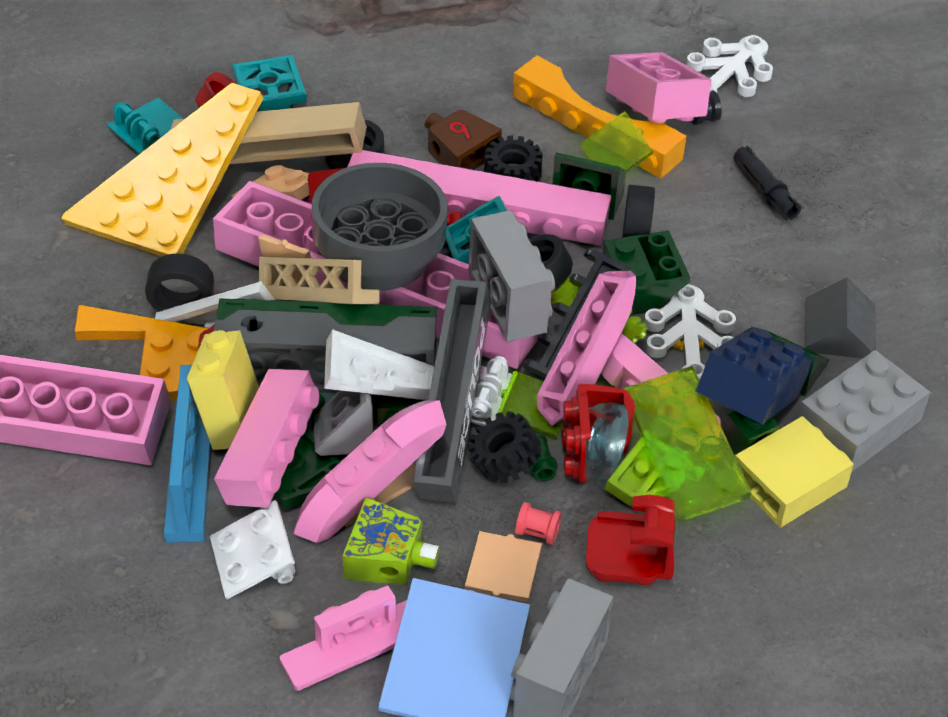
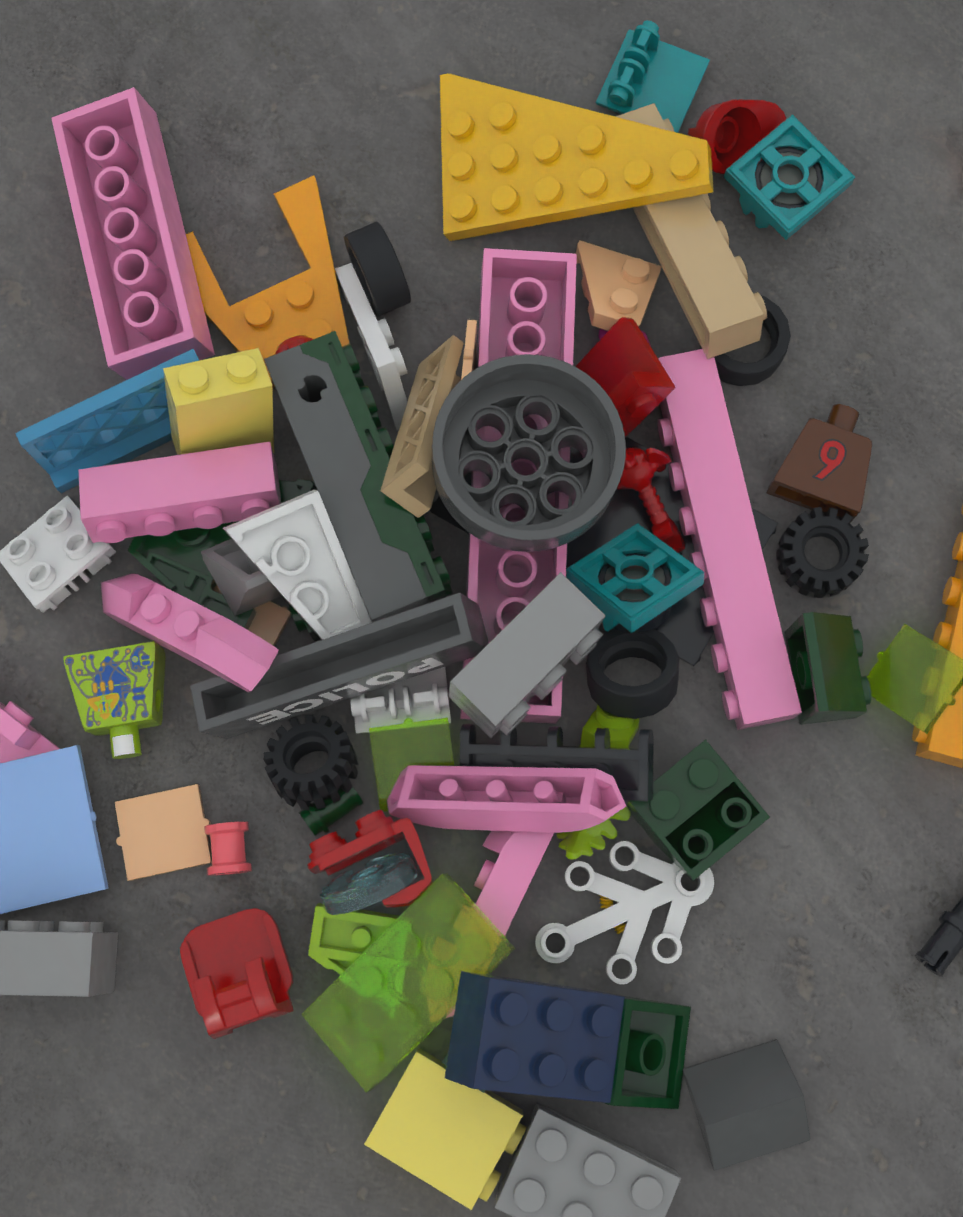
camera: 70 degrees right, 30 degrees up
(638, 210) = (787, 762): black tyre -> none

